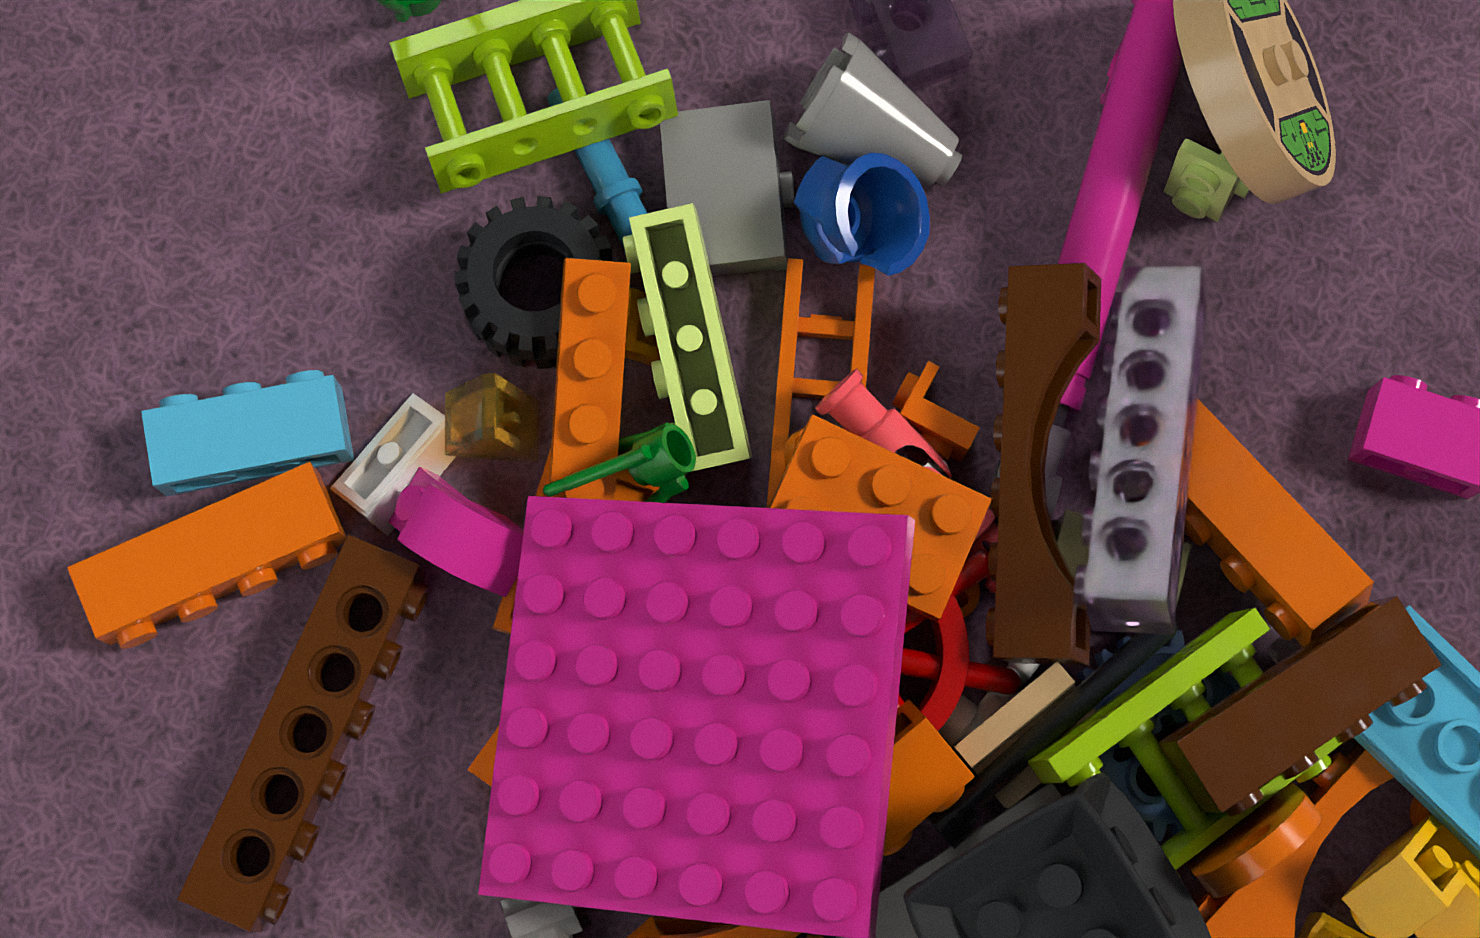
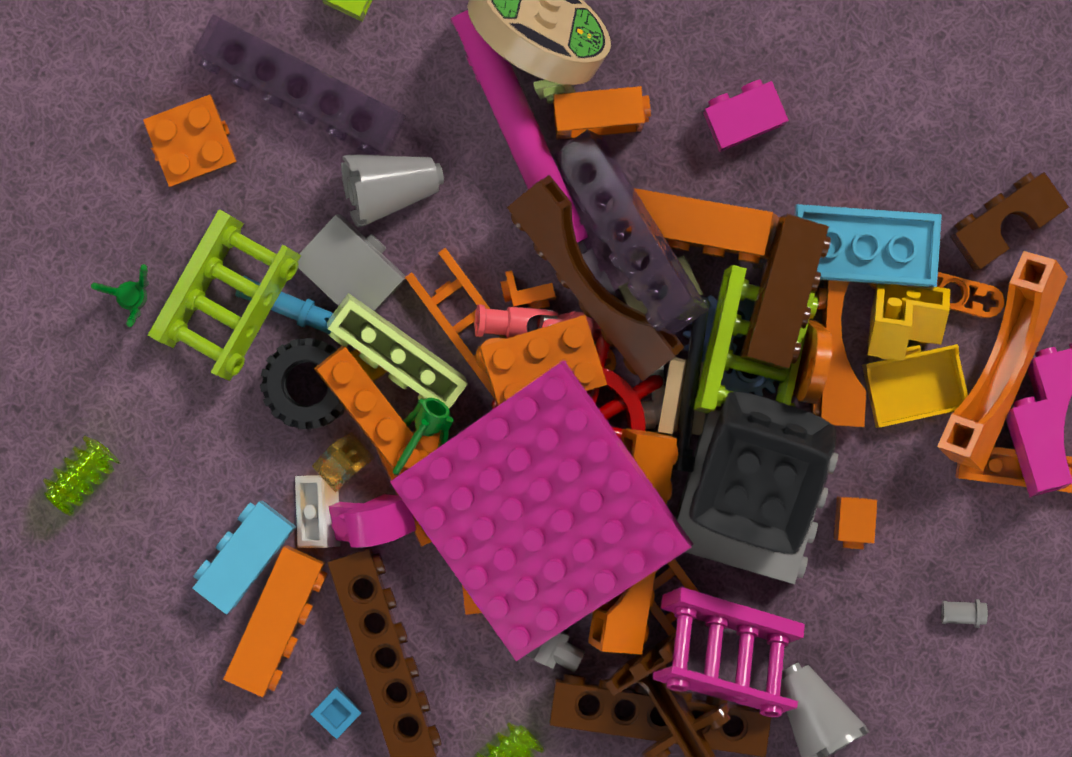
camera: 40 degrees left, 10 degrees up
(137, 146) = (79, 475): none -> clear neon green piece
(175, 752) = (336, 712): none -> dark azure plate
(864, 212) = (418, 228): blue helmet -> none
(1248, 265) = (601, 112): none -> orange window

